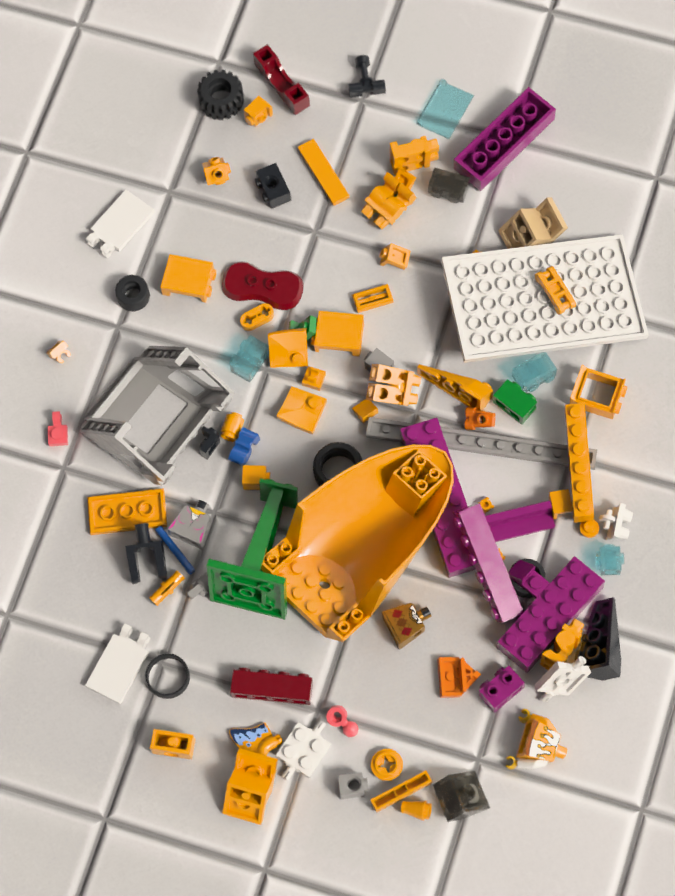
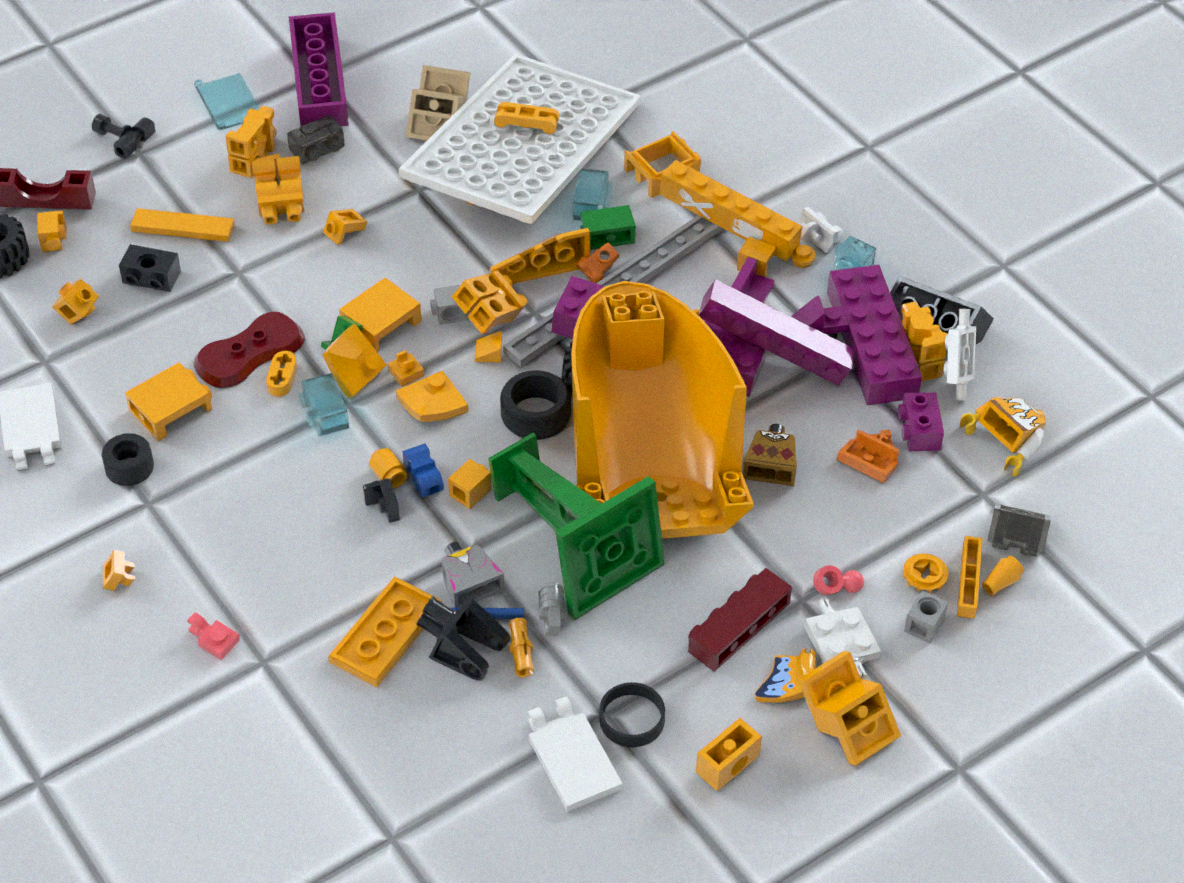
camera: 60 degrees left, 20 degrees down
(110, 415) = (325, 527): light grey piece -> none
(372, 305) = (378, 272): light orange tile -> none

